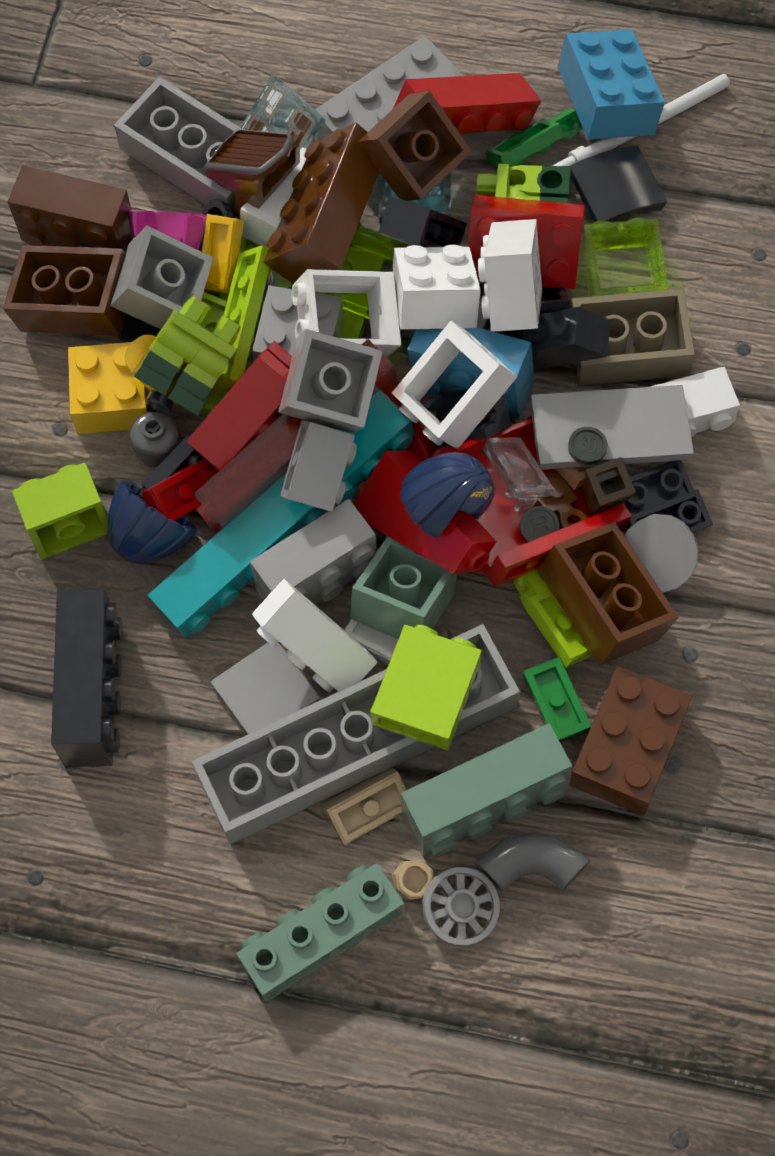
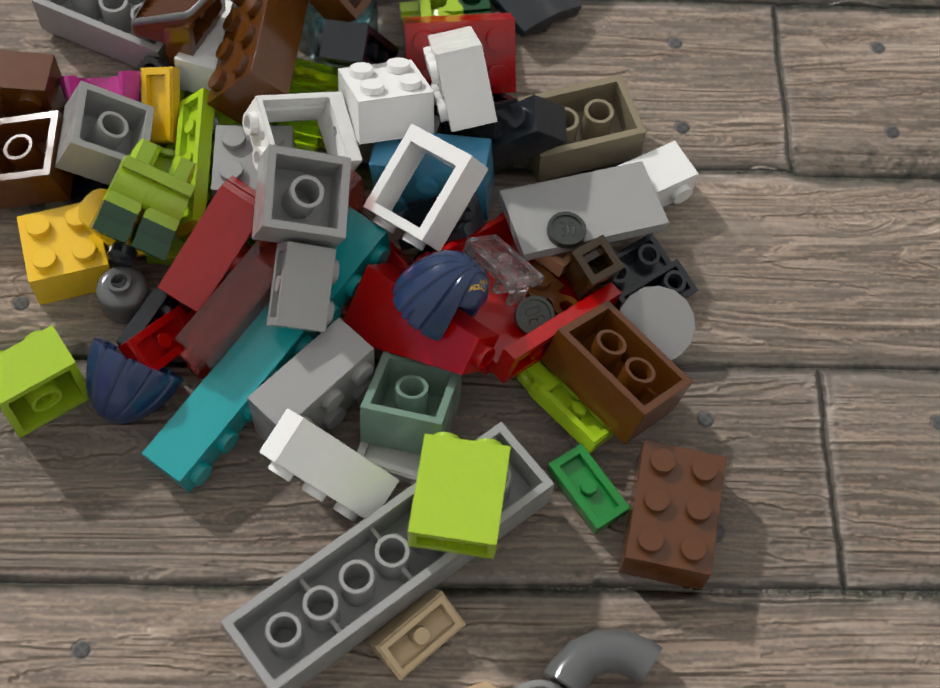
camera: 20 degrees left, 5 degrees down
(86, 678) = (87, 554): black brick -> none
(264, 688) = (282, 530): light grey tile -> none
(486, 791) = (541, 594): sand green brick -> none
(619, 235) = (559, 37): clear neon green window -> none

